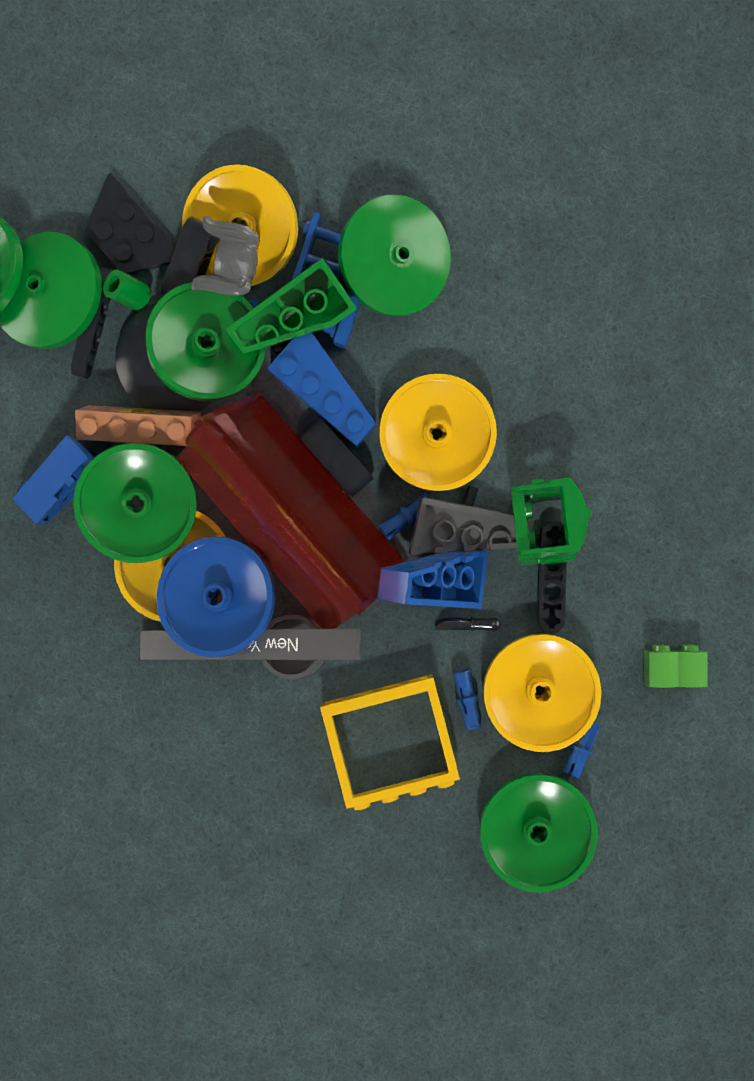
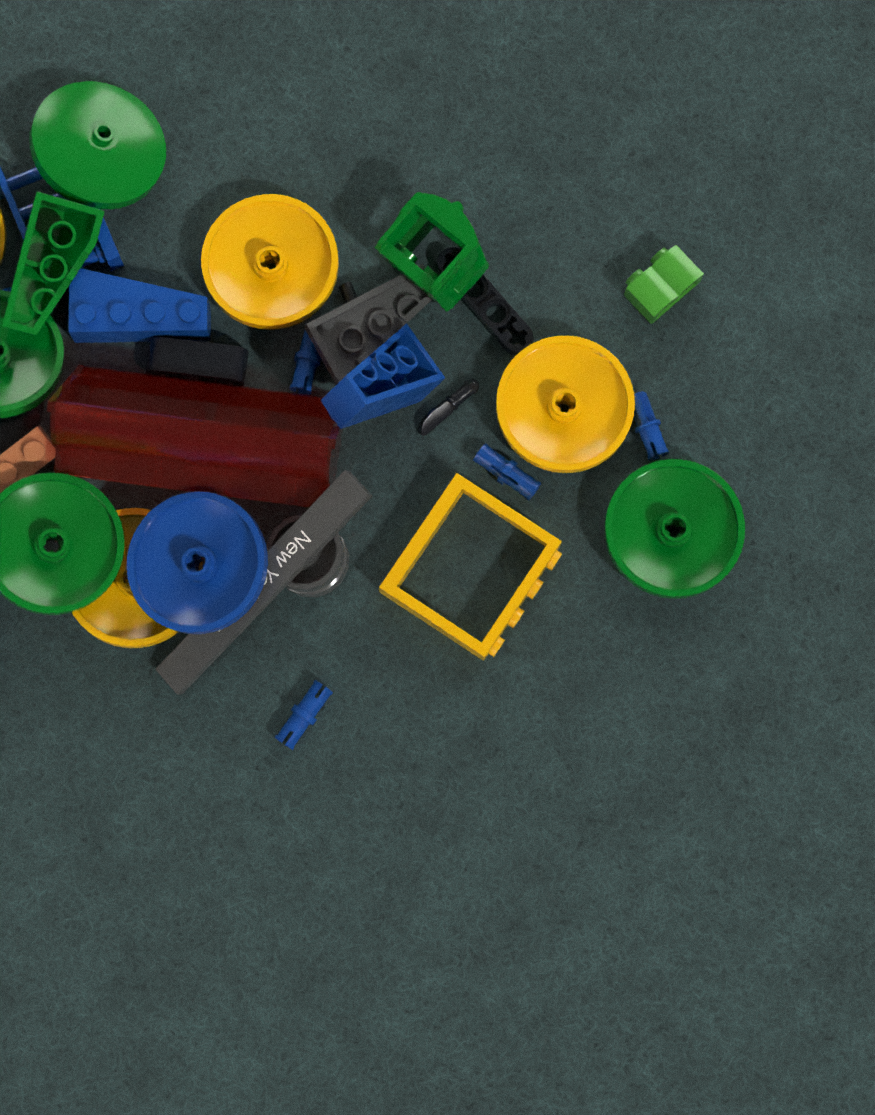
camera: 45 degrees left, 10 degrees down
(206, 739) = (303, 714): none -> blue pin

